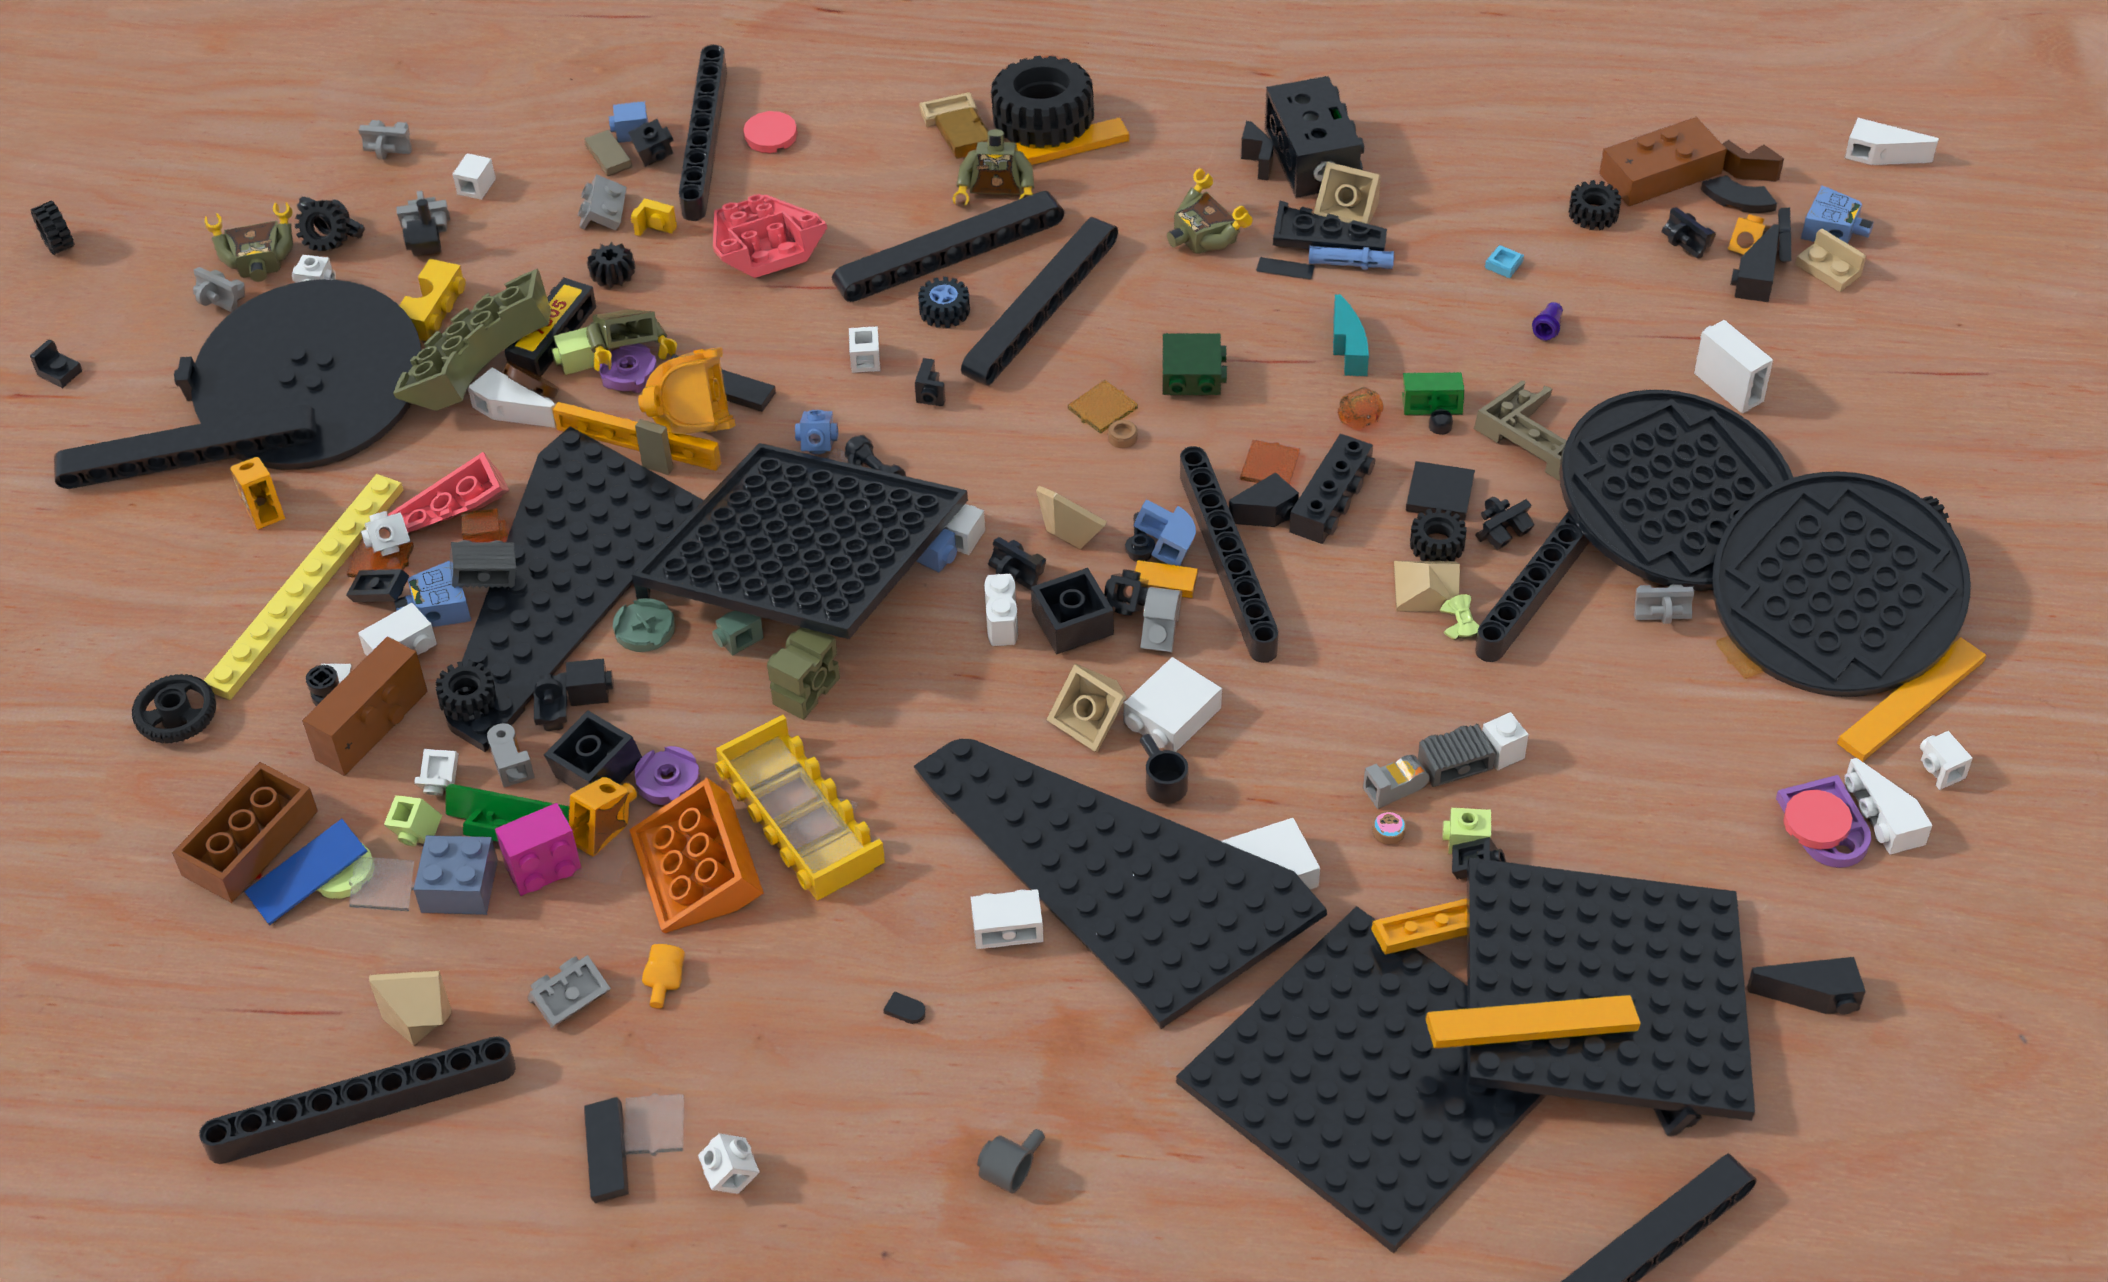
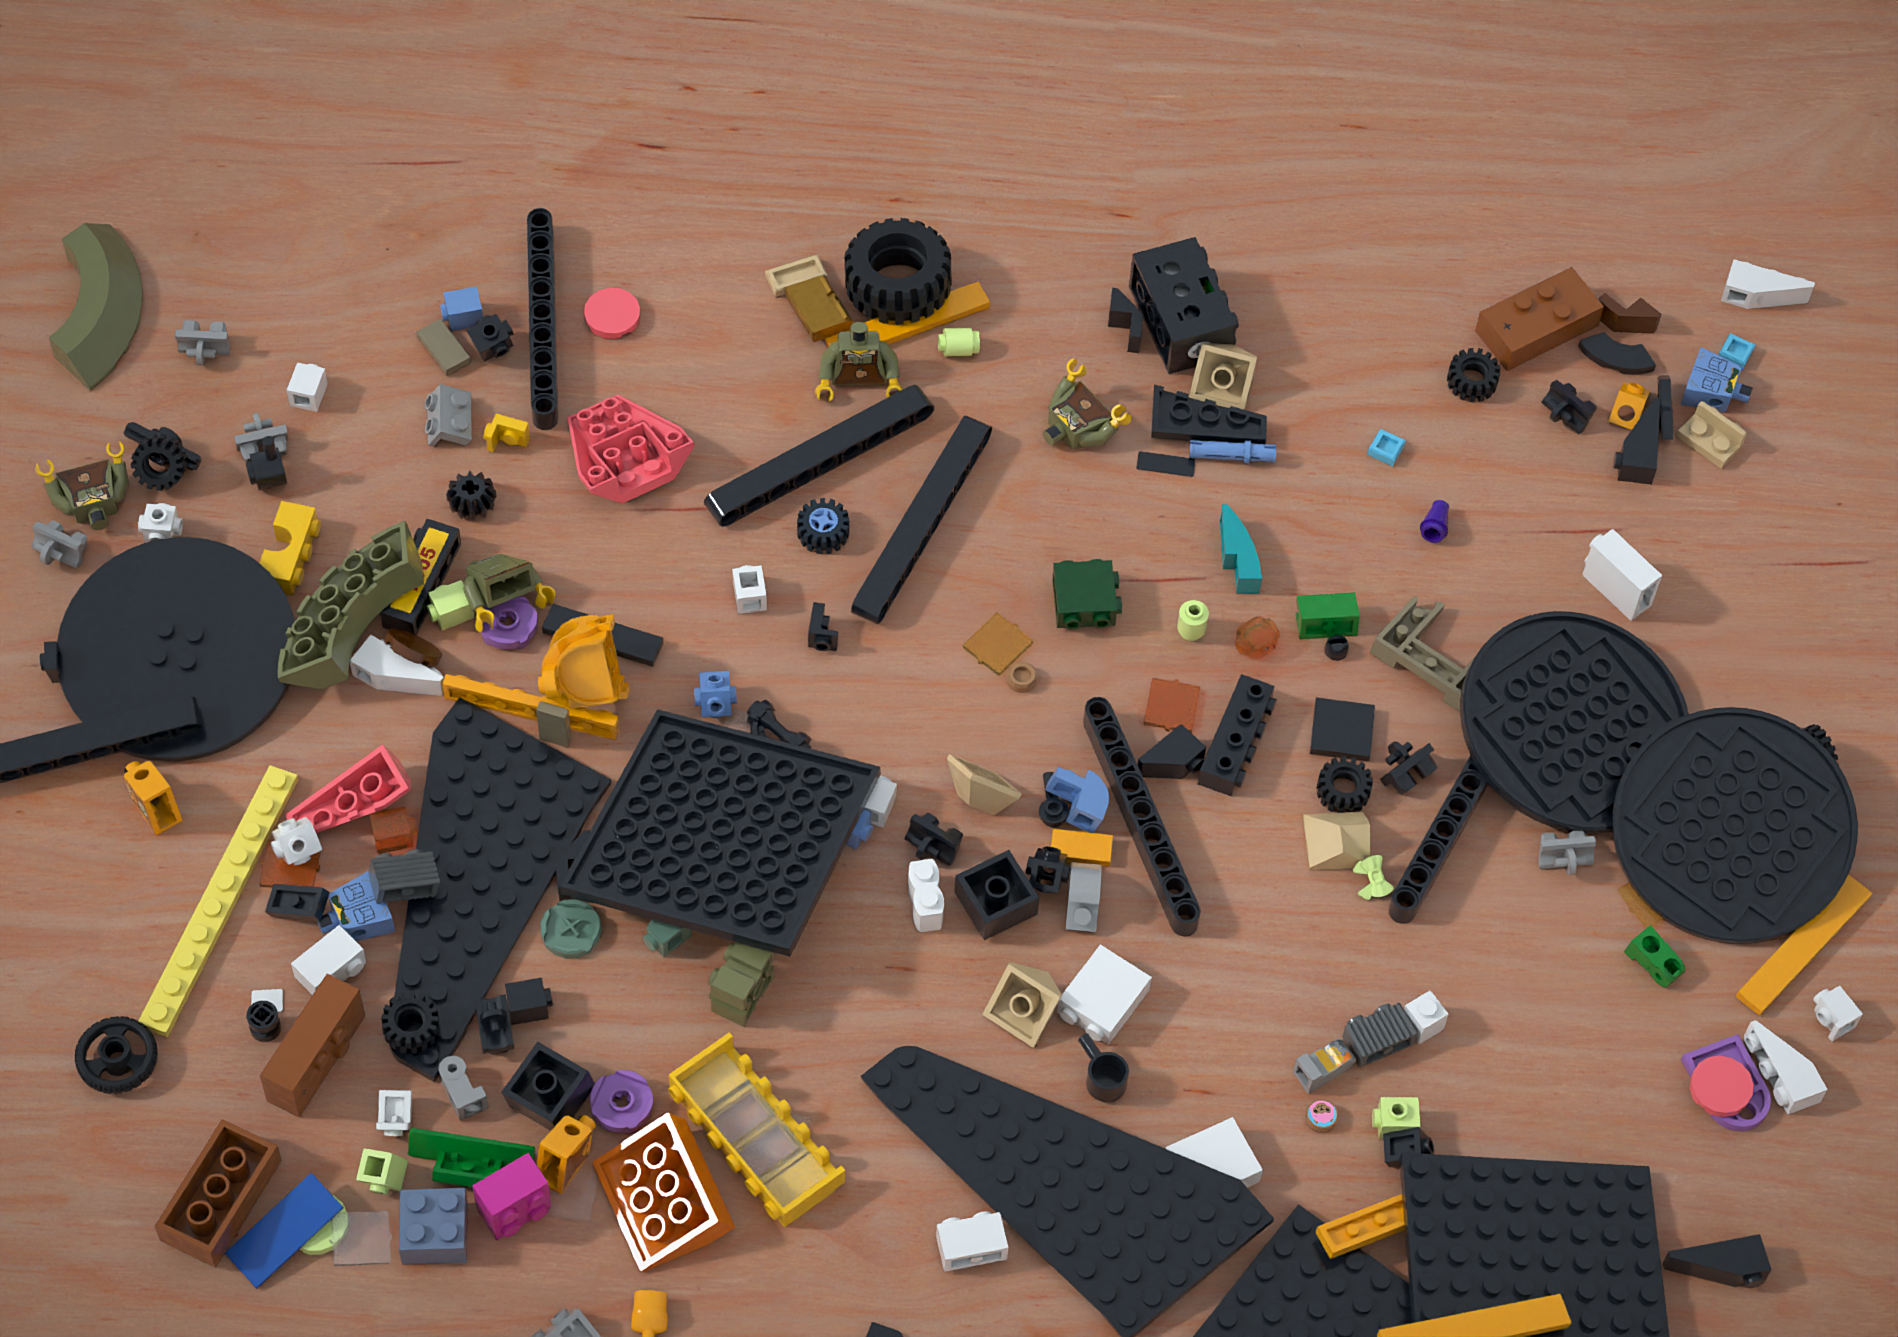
camera: 10 degrees left, 10 degrees up
(300, 110) = (106, 305): none -> olive brick
(1094, 162) = (959, 342): none -> yellowish green brick
(1297, 390) = (1192, 620): none -> yellowish green brick
(1752, 699) = (1655, 957): none -> green leg
(1861, 193) = (1737, 350): none -> medium azure tile

